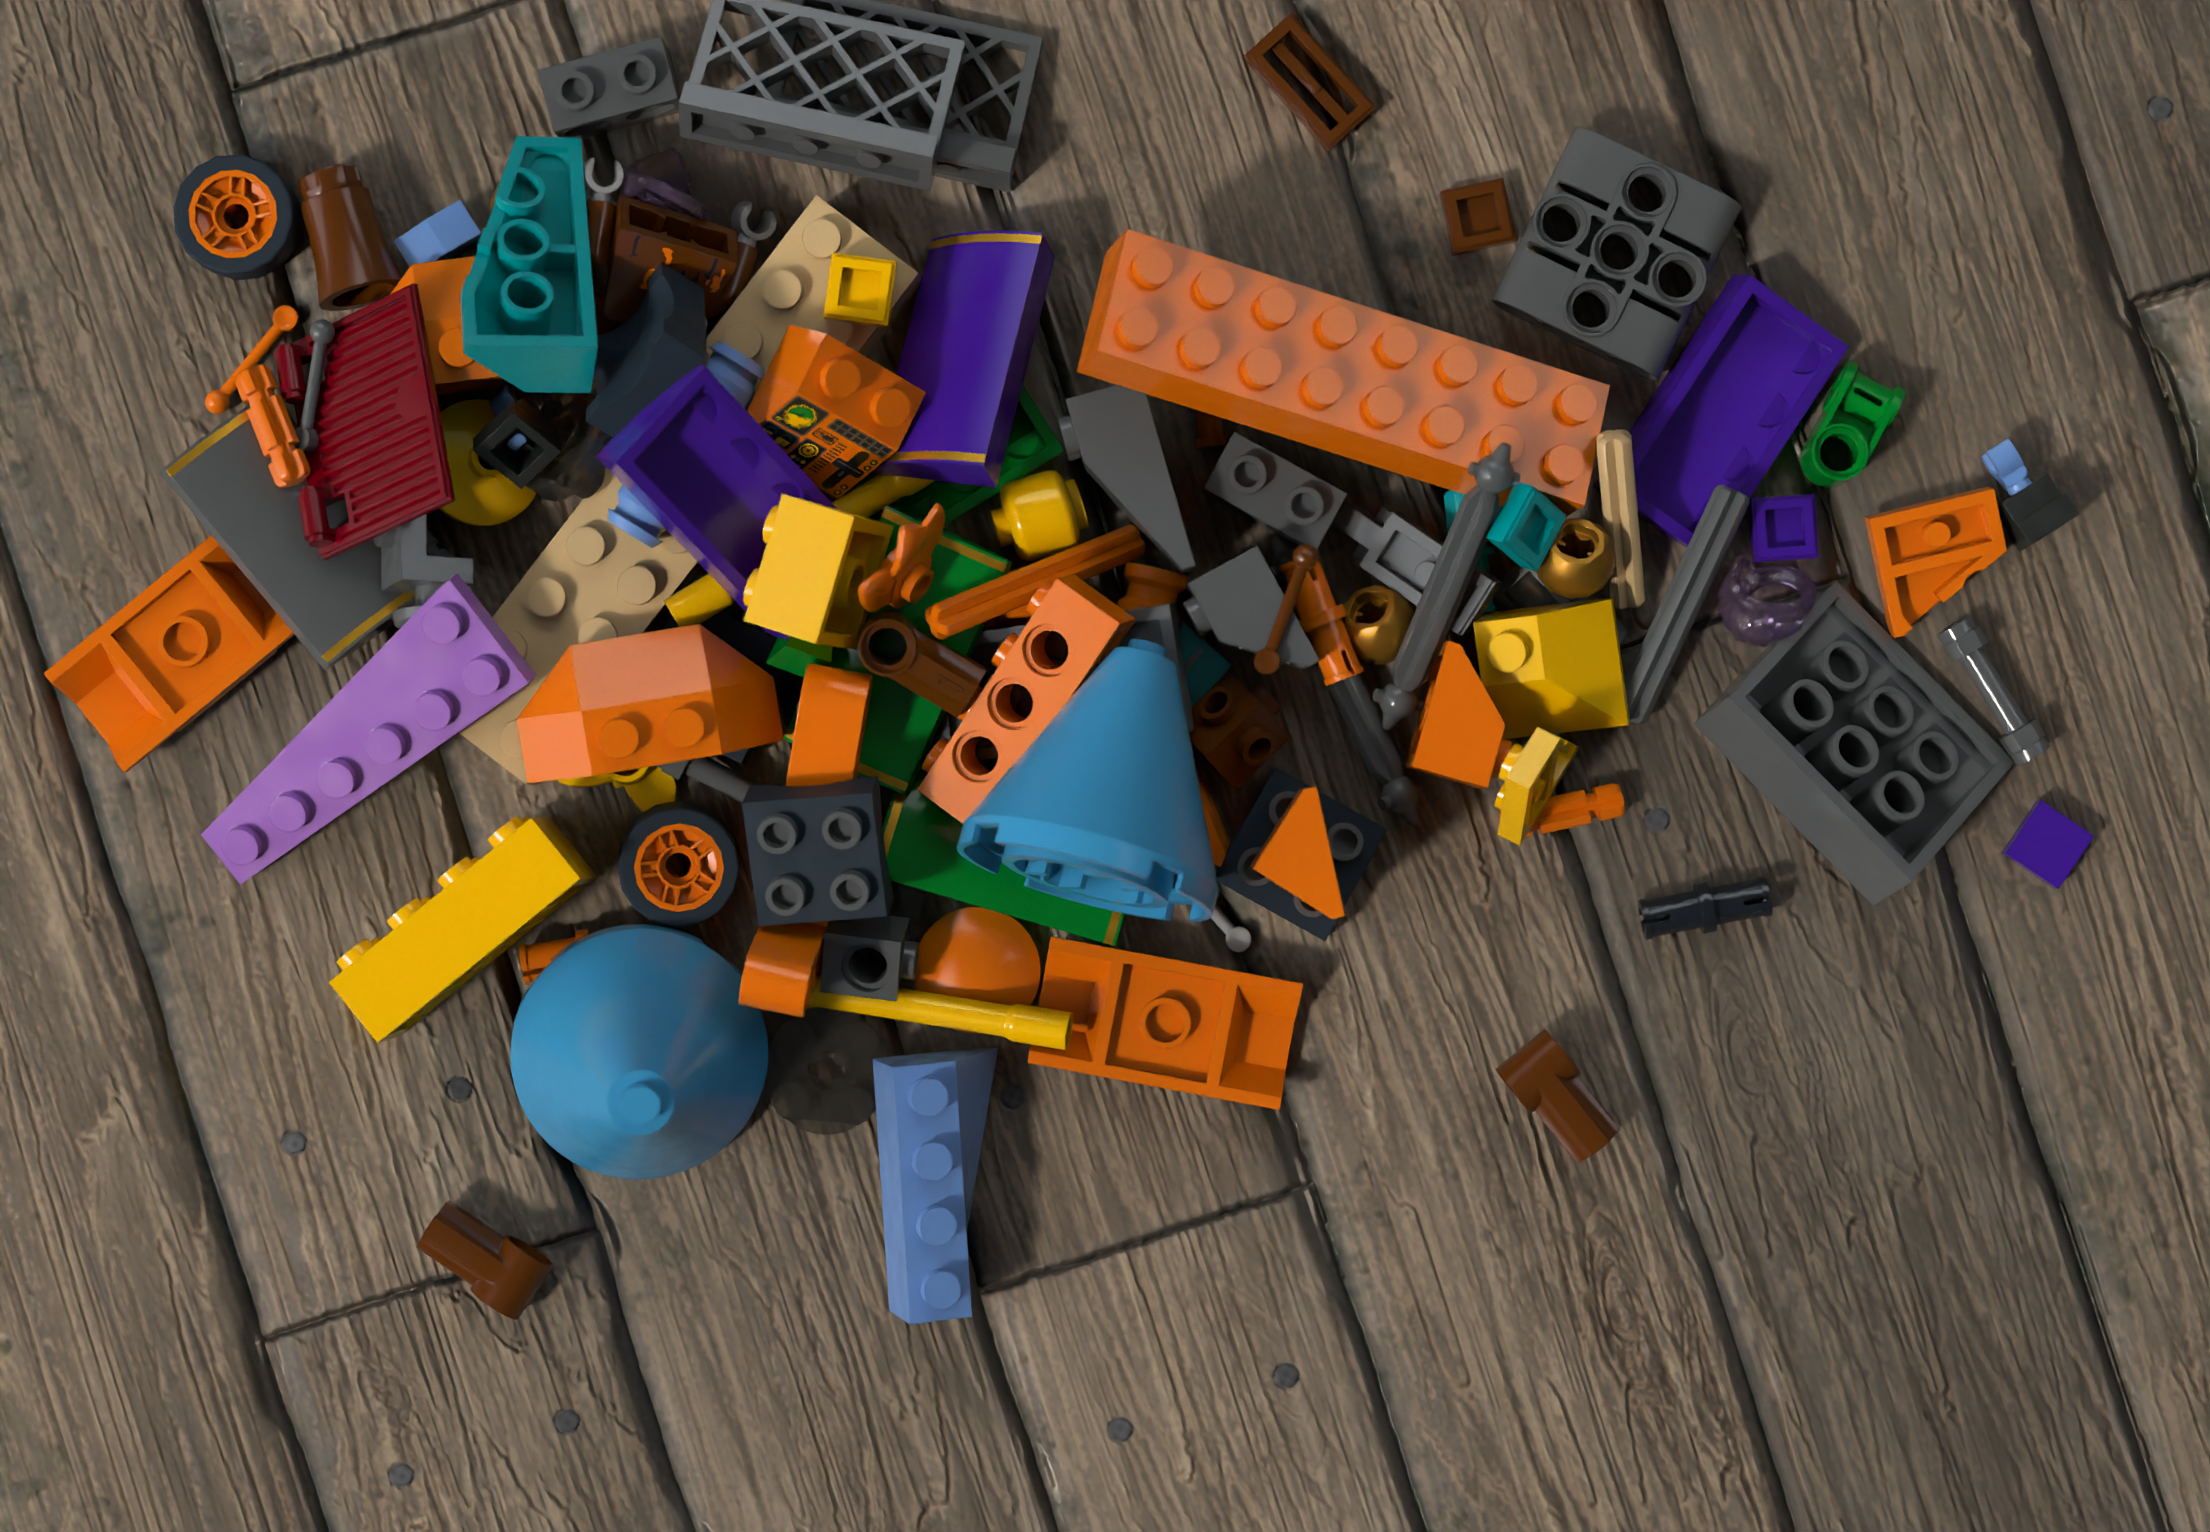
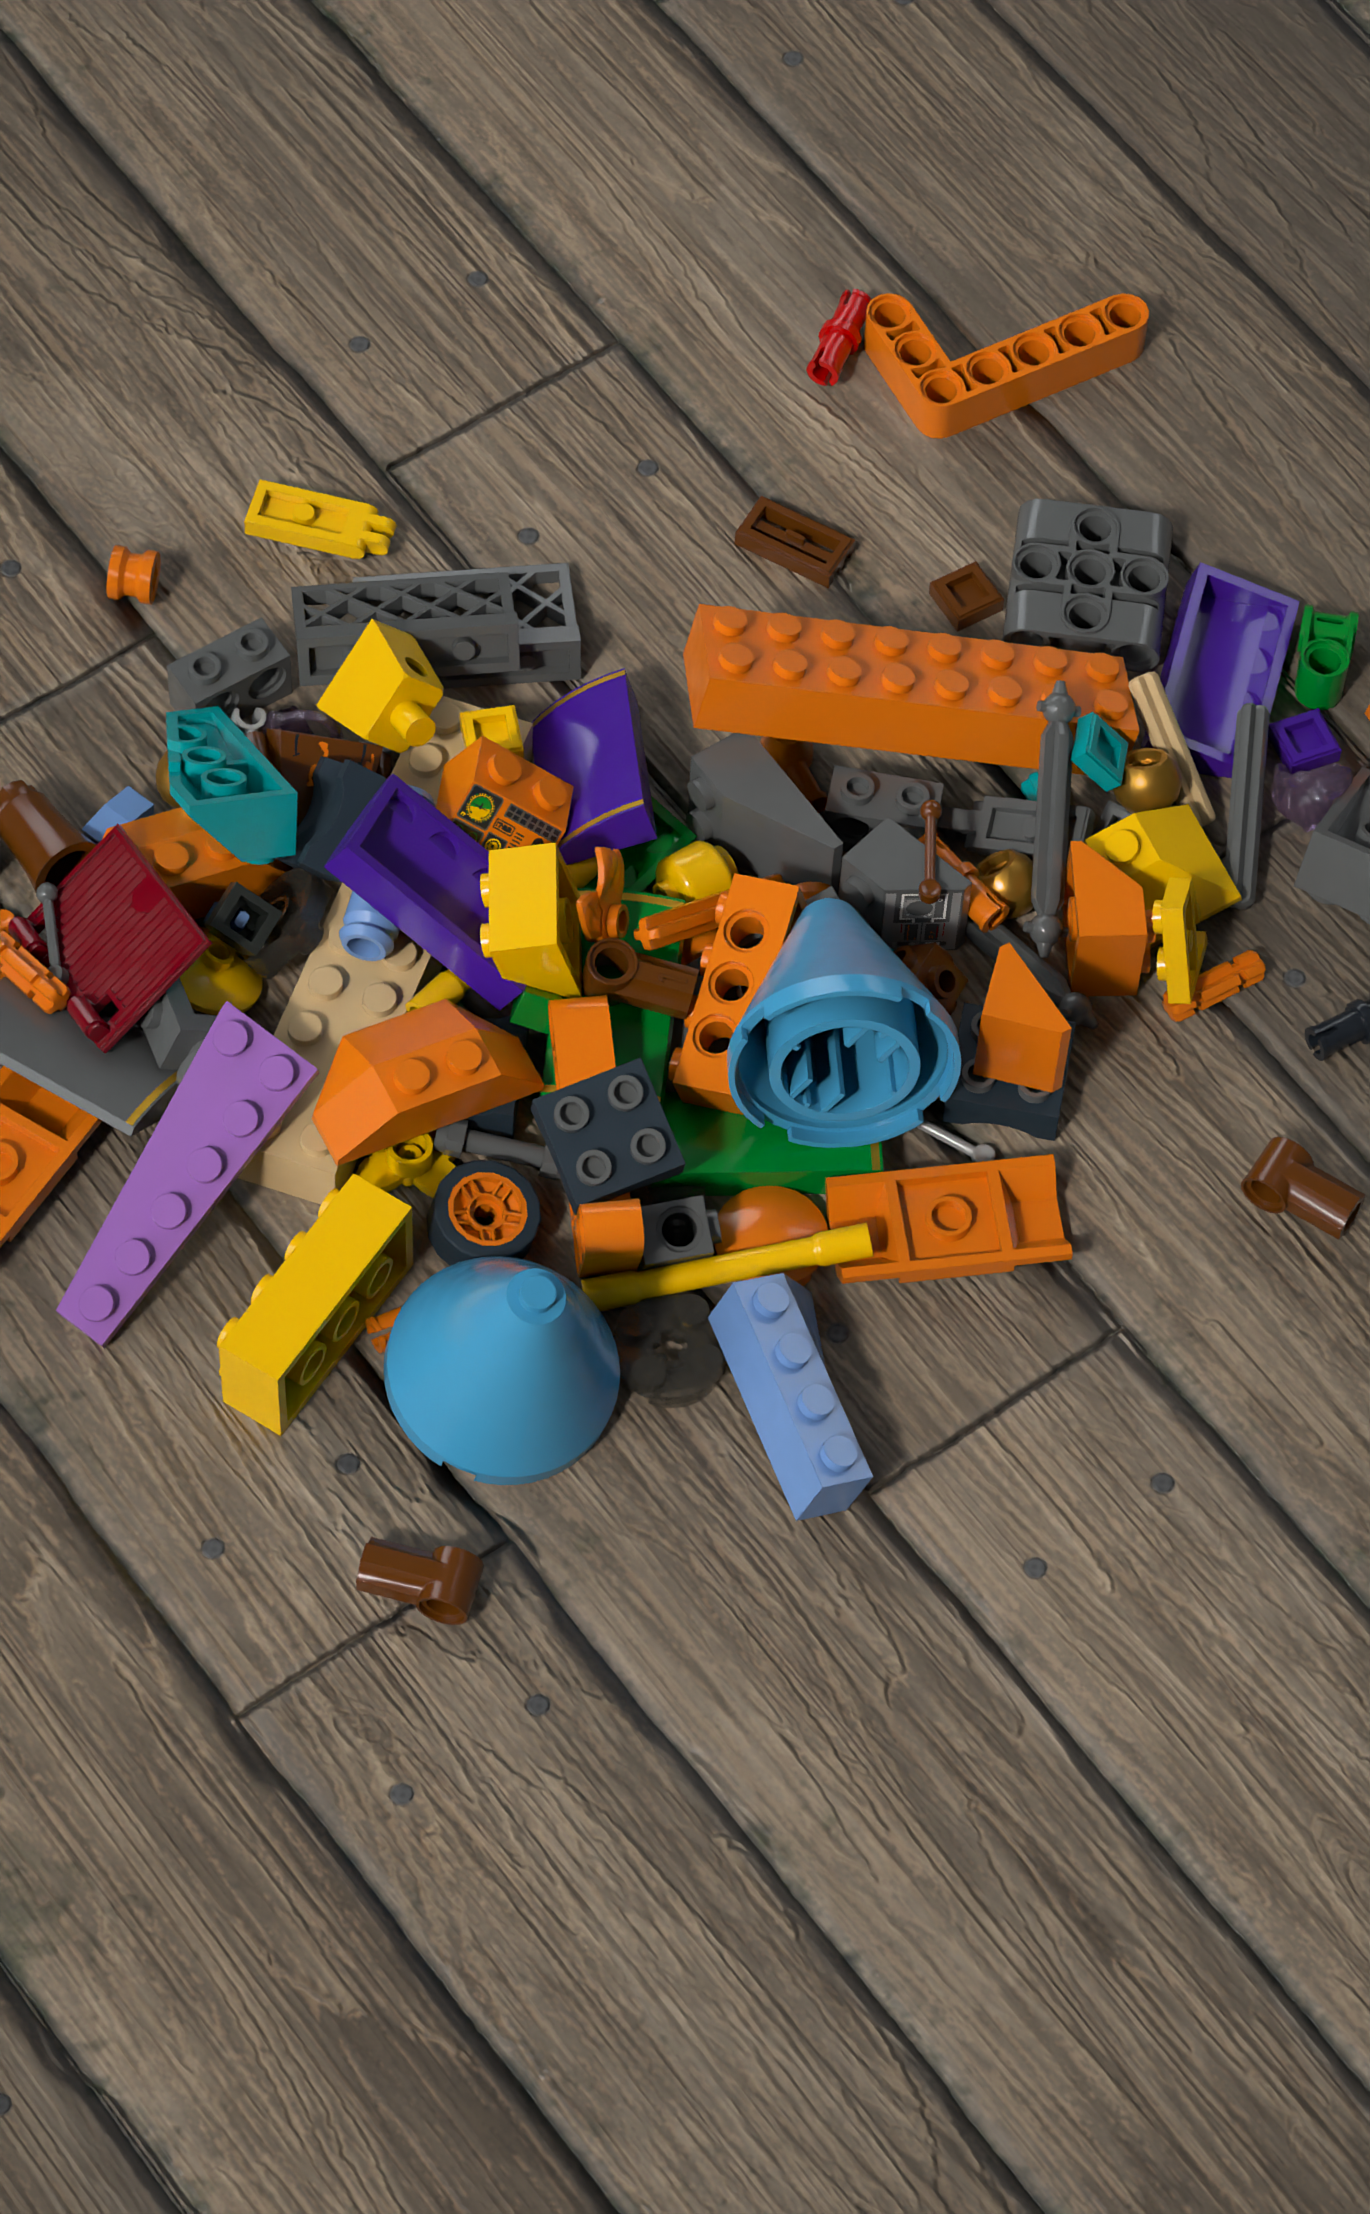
camera: 20 degrees left, 30 degrees down
(757, 202) = (385, 690): none -> yellow torso

